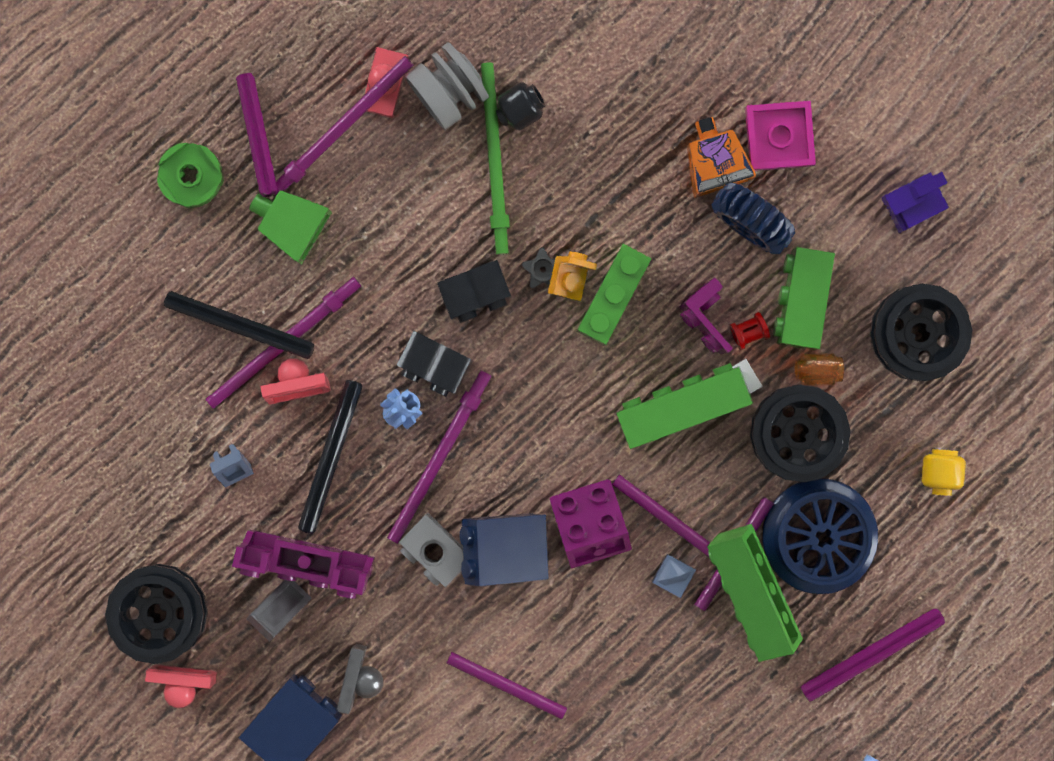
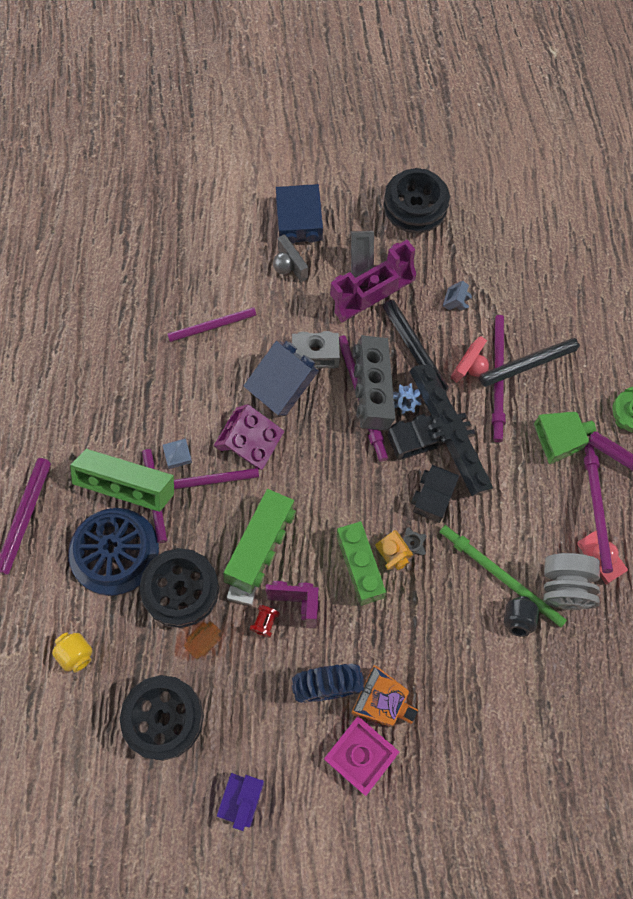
camera: 130 degrees right, 20 degrees down
(180, 682) = (370, 188): coral tile -> none
(378, 484) = (374, 383): none -> dark grey brick
(393, 335) = (451, 429): none -> black hinge
(804, 298) = (251, 670): bright green brick -> none

